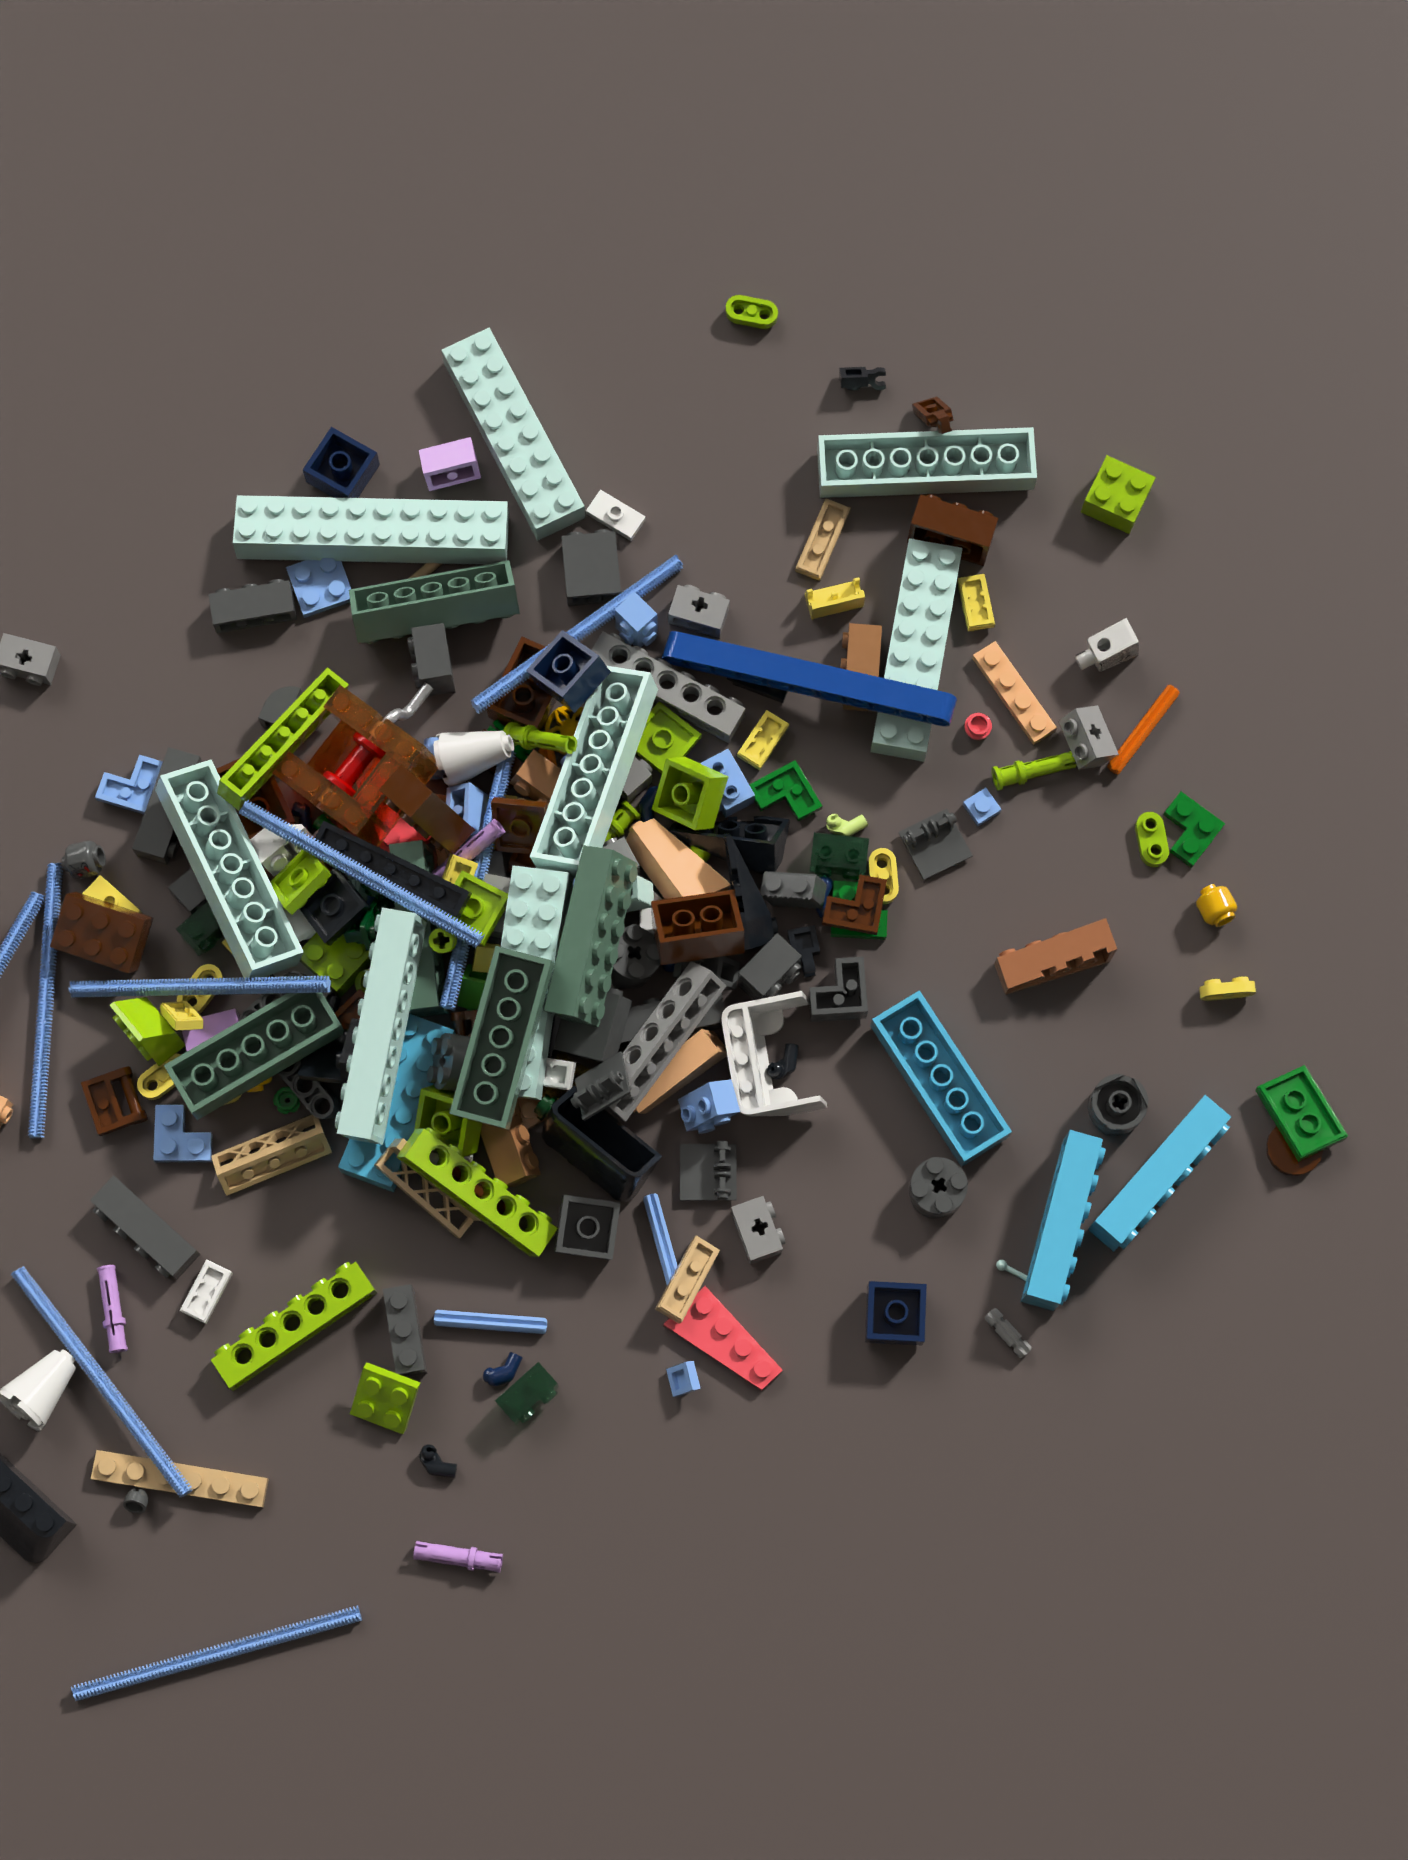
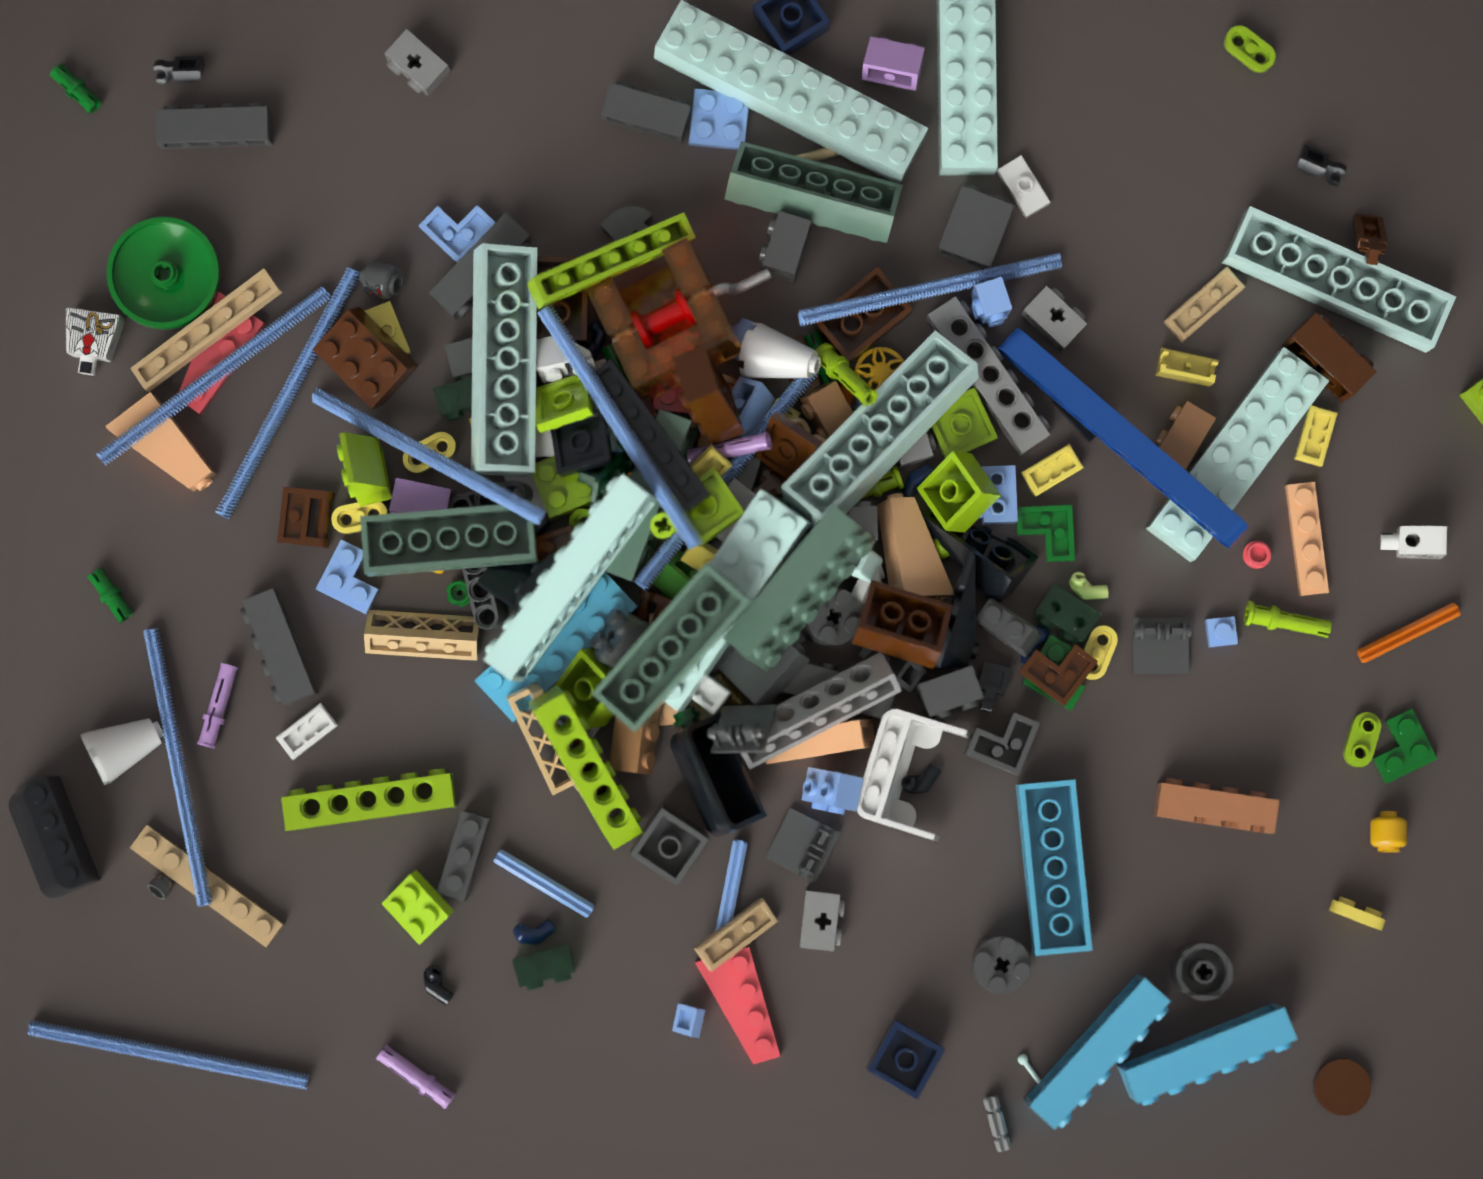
camera: 25 degrees right, 10 degrees up
(181, 1015) = (399, 474): light yellow plate -> none
(568, 671) = (902, 325): dark blue brick -> none
(1088, 737) = (1353, 617): light grey brick -> none
(1301, 1113) = (1364, 1060): green tile -> none

